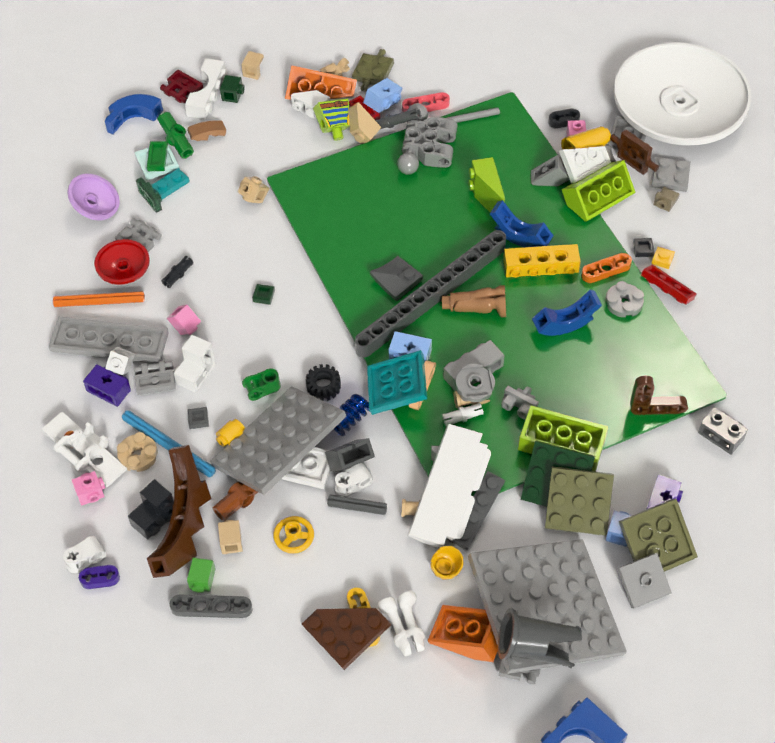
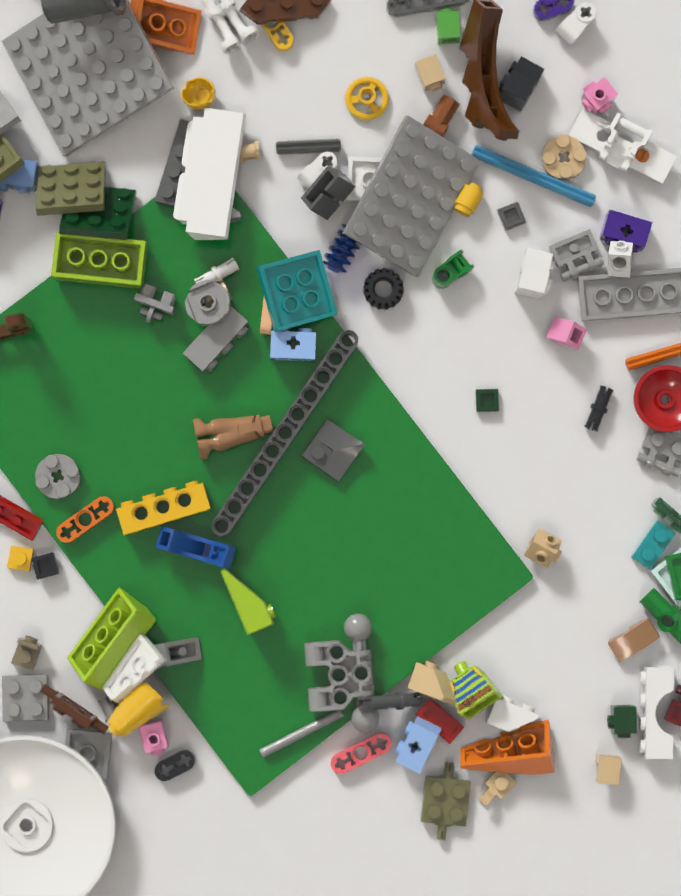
camera: 165 degrees right, 30 degrees up
(569, 319) = (121, 427): blue arch -> none

